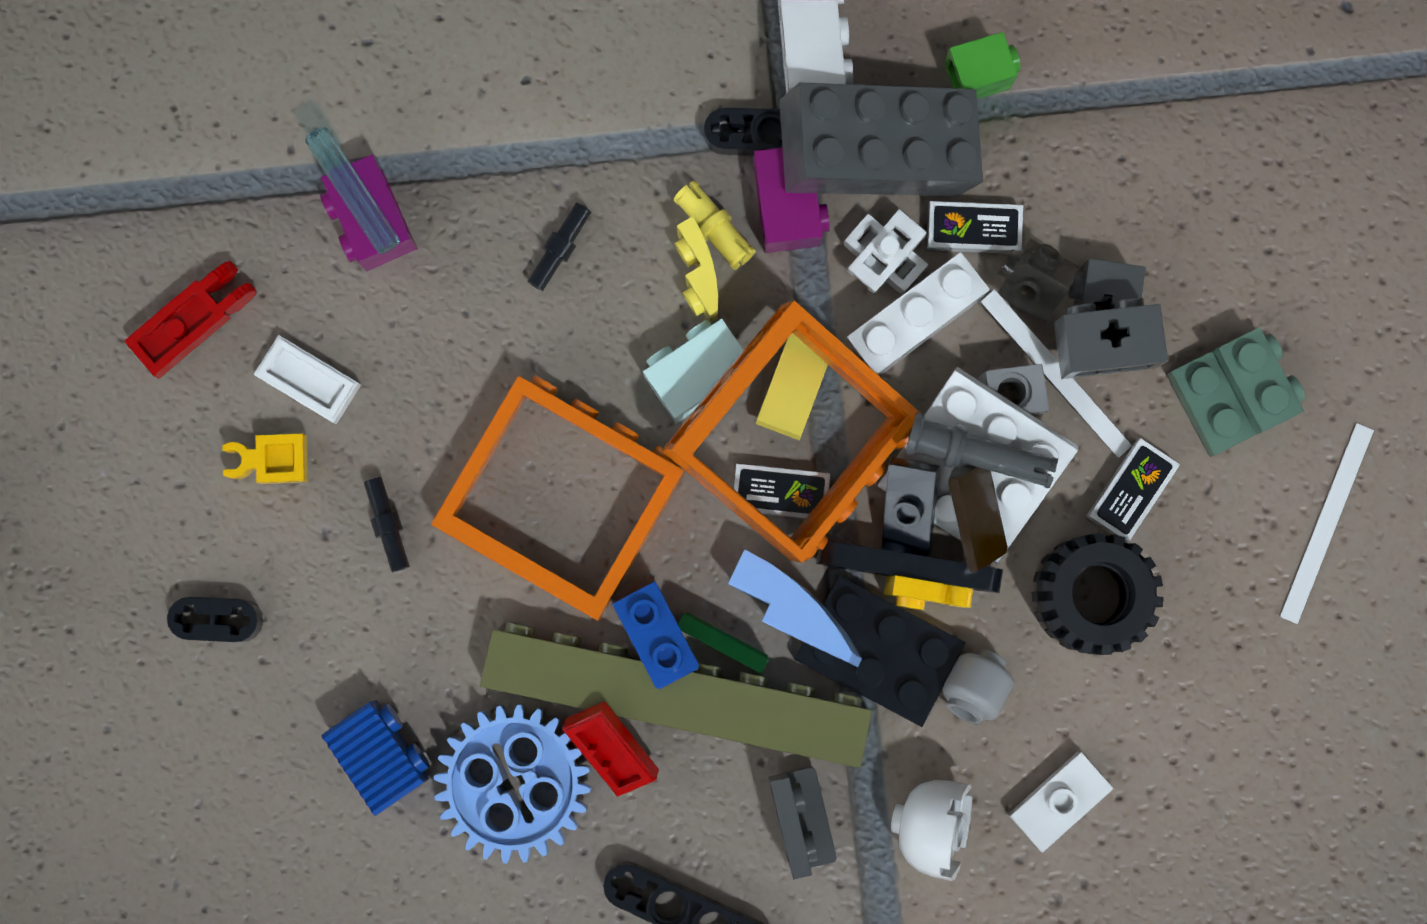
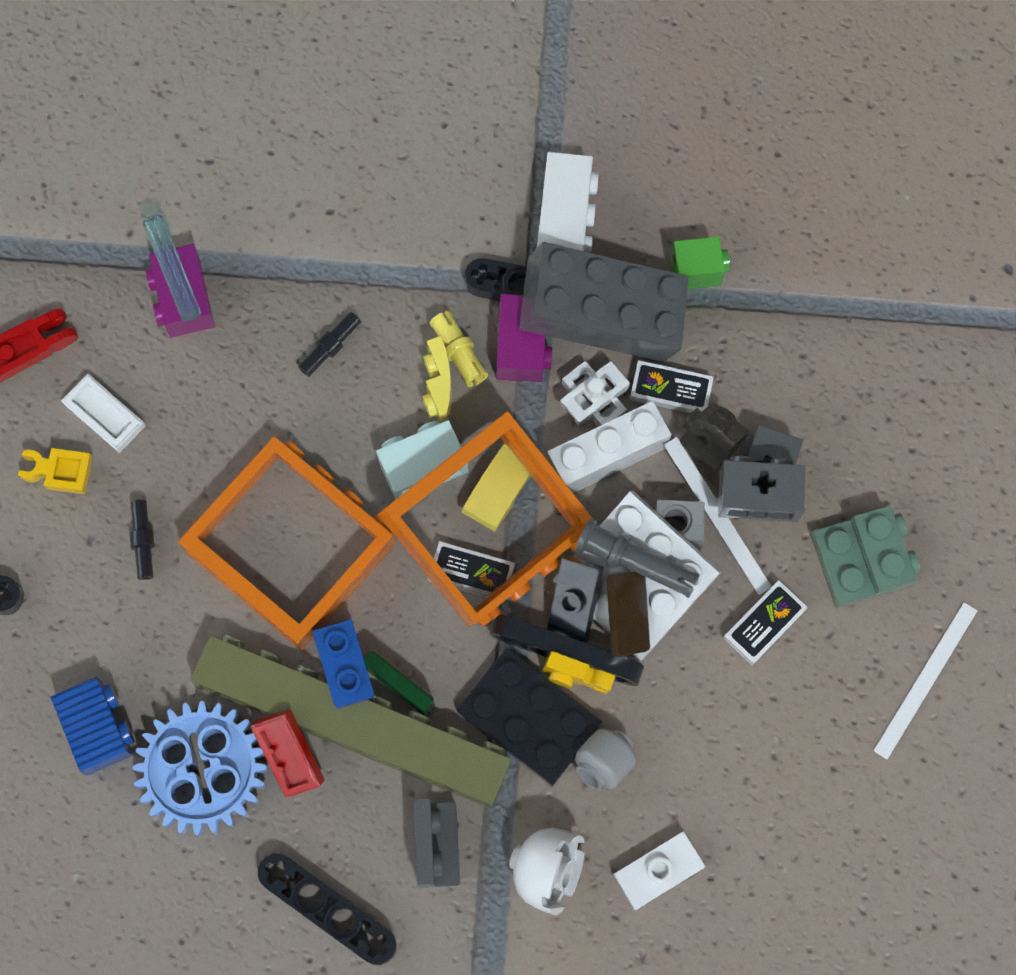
camera: 10 degrees right, 10 degrees down
(792, 607) = (460, 663): light blue slope -> none
(1135, 584) = (742, 675): black tyre -> none

